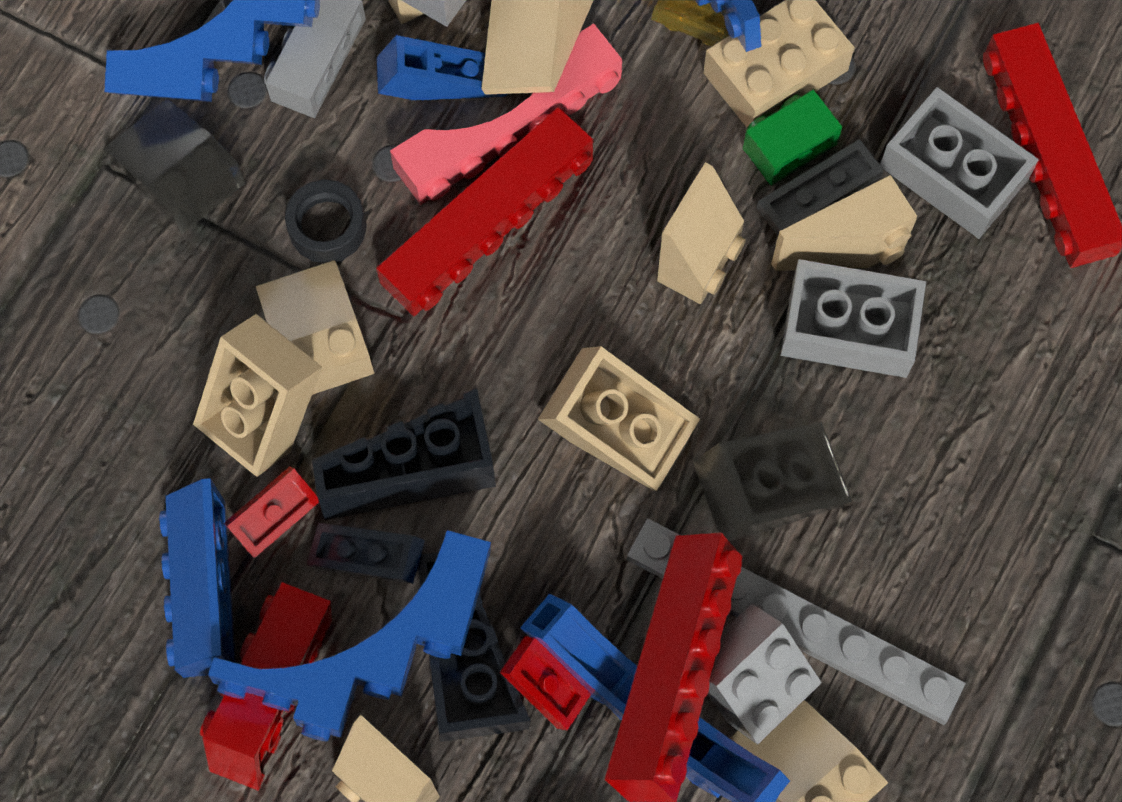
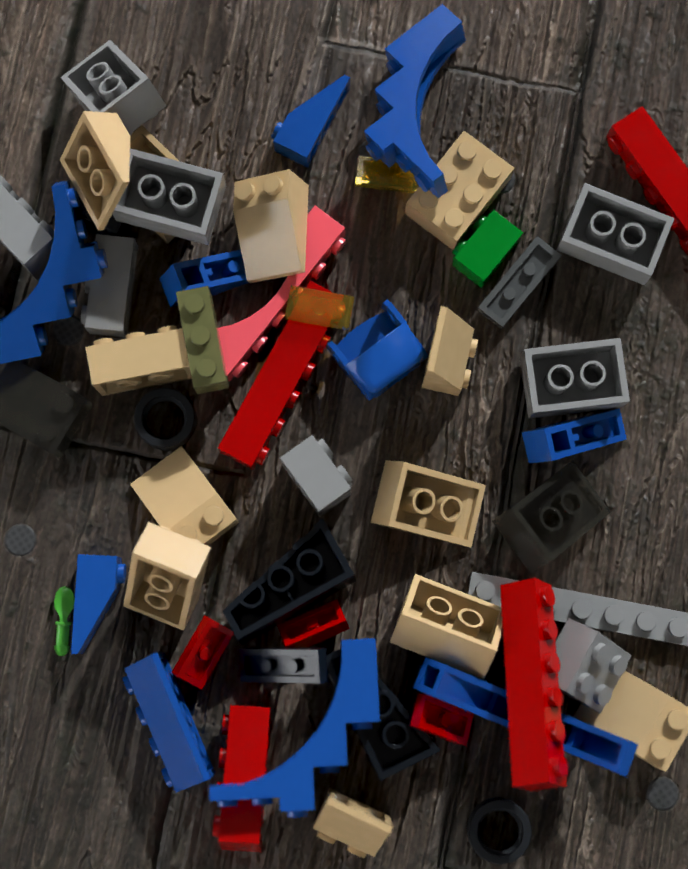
camera: 20 degrees left, 10 degrees up
(122, 405) = (63, 605): none -> bright green piece
(161, 404) = (95, 590): none -> blue slope
(318, 140) = (138, 361): none -> tan brick
(400, 132) = (202, 340): none -> olive brick
(424, 521) = (314, 626): none -> red plate
(489, 336) = (316, 475): none -> light grey brick
(558, 139) = (319, 307): none -> clear yellow plate
(591, 567) = (449, 626): none -> tan brick
(615, 220) = (378, 352): none -> blue piece
(831, 390) = (573, 436): none -> blue slope
(852, 232) = (558, 312): tan slope -> none

